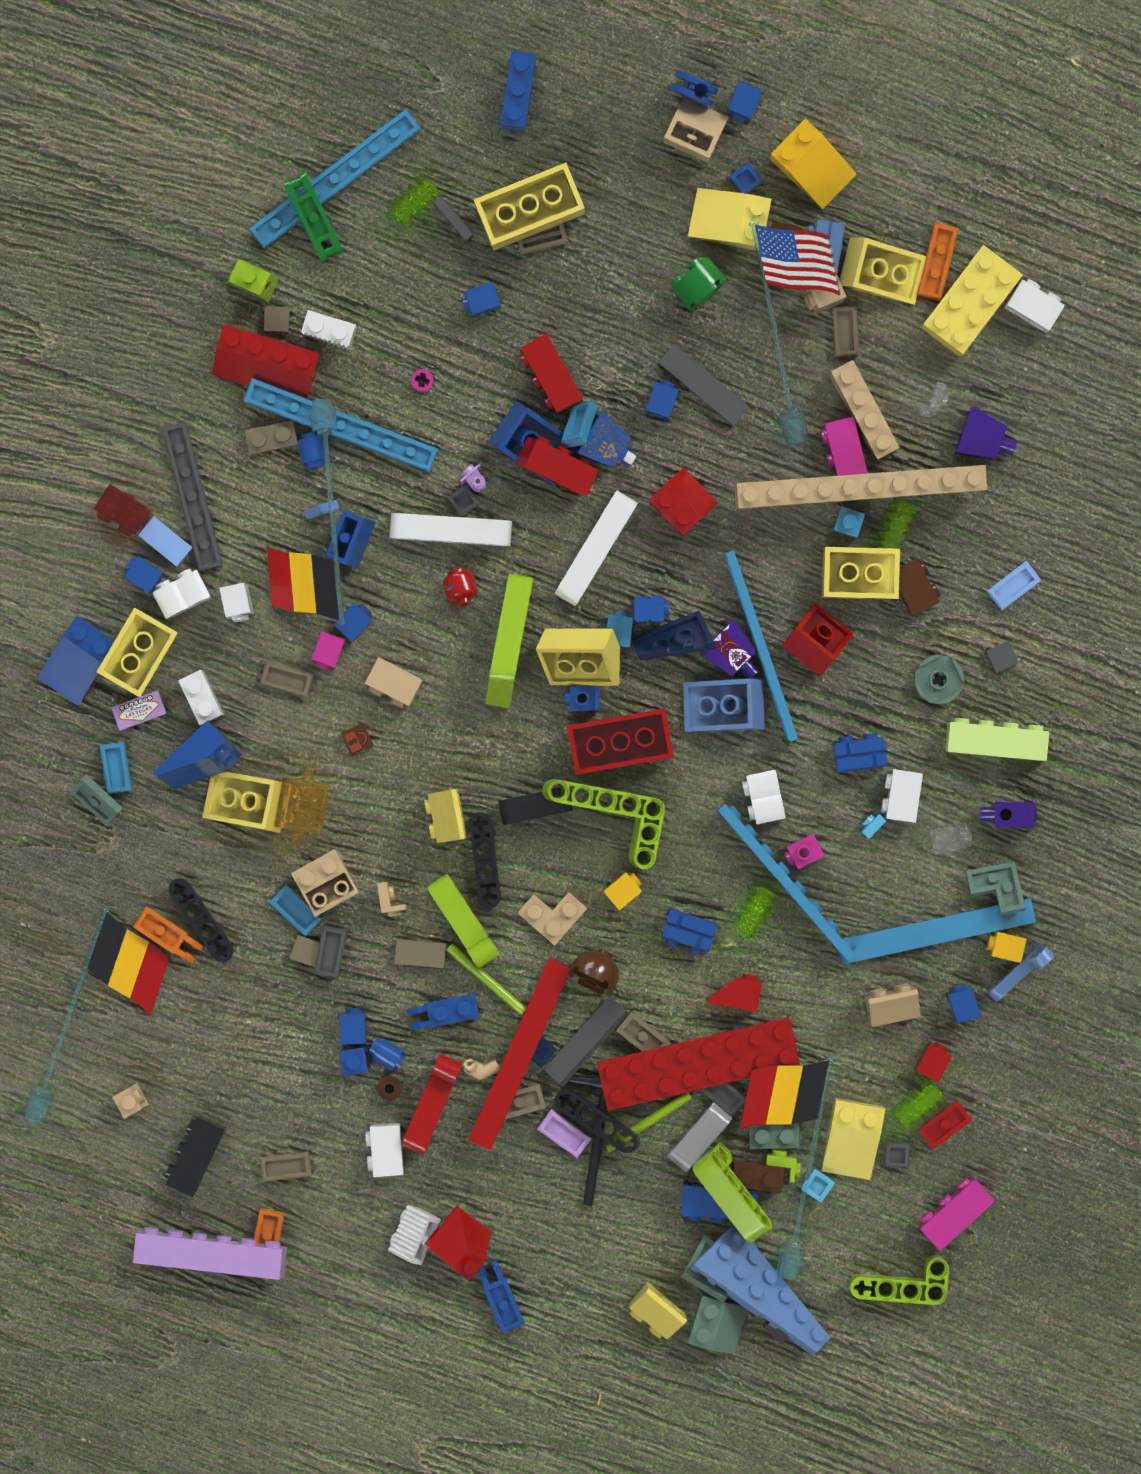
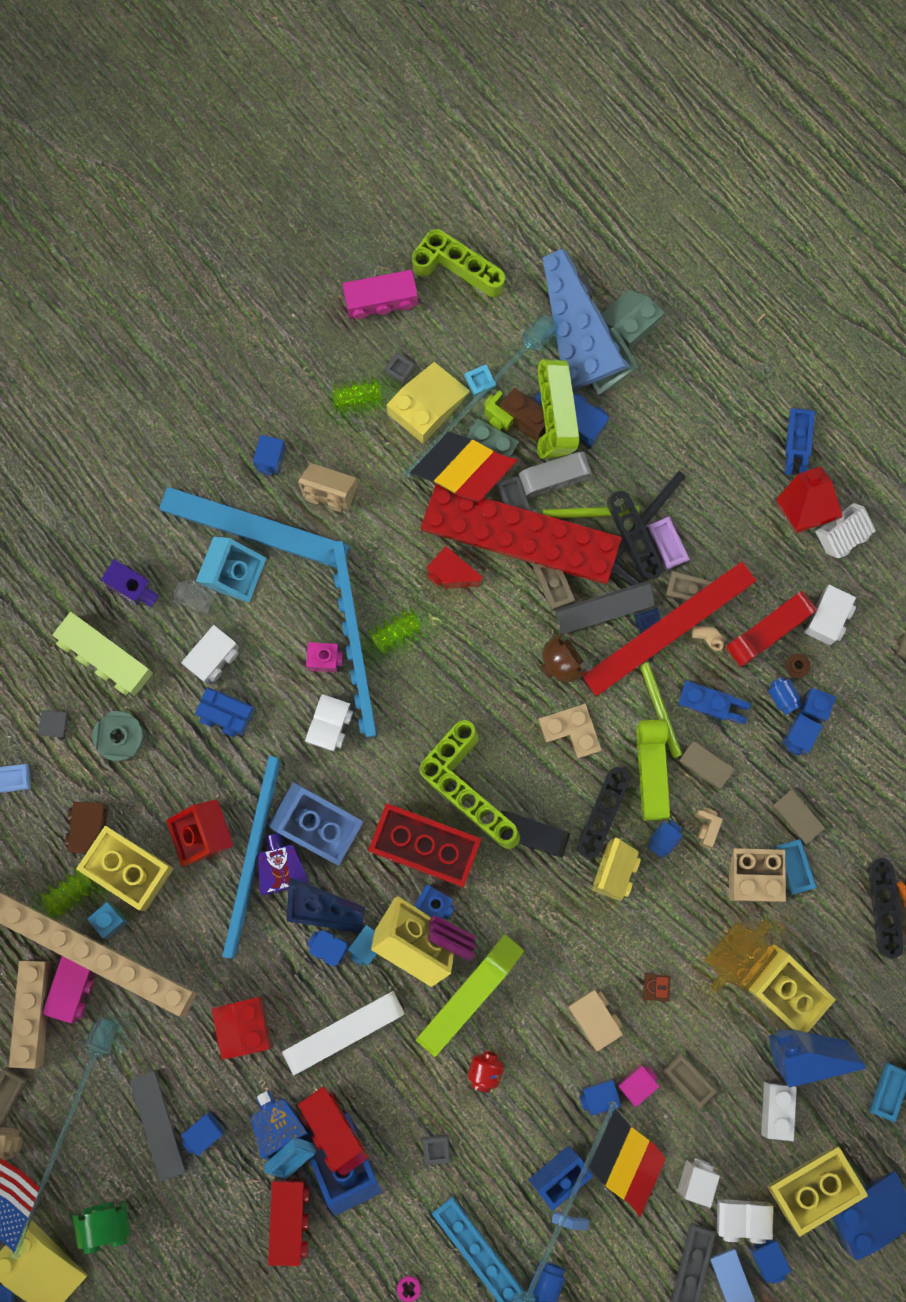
camera: 150 degrees left, 10 degrees down
(139, 710) = (841, 1133): tile -> none
(330, 952) = (785, 811): dark grey tile -> none
(420, 868) = (665, 838): none -> blue brick
(450, 529) = (464, 1130): white beam -> none
(473, 478) = (415, 1166): lavender hinge -> none
(552, 681) = (450, 936): none -> magenta tile
(623, 890) = (498, 715): yellow brick -> none
(657, 1311) = (673, 354): light yellow slope -> none
(688, 930) = (462, 648): blue brick -> none
(871, 825) = (252, 646): medium azure plate -> none
(933, 881) = (231, 568): none -> medium azure slope
(933, 1061) = (323, 423): red brick -> none
(944, 1124) = (345, 369): red plate -> none
(999, 879) = (172, 534): sand green plate -> none
(1006, 946) = (203, 480): yellow brick -> none
(1034, 959) = (186, 457): medium blue beam -> none

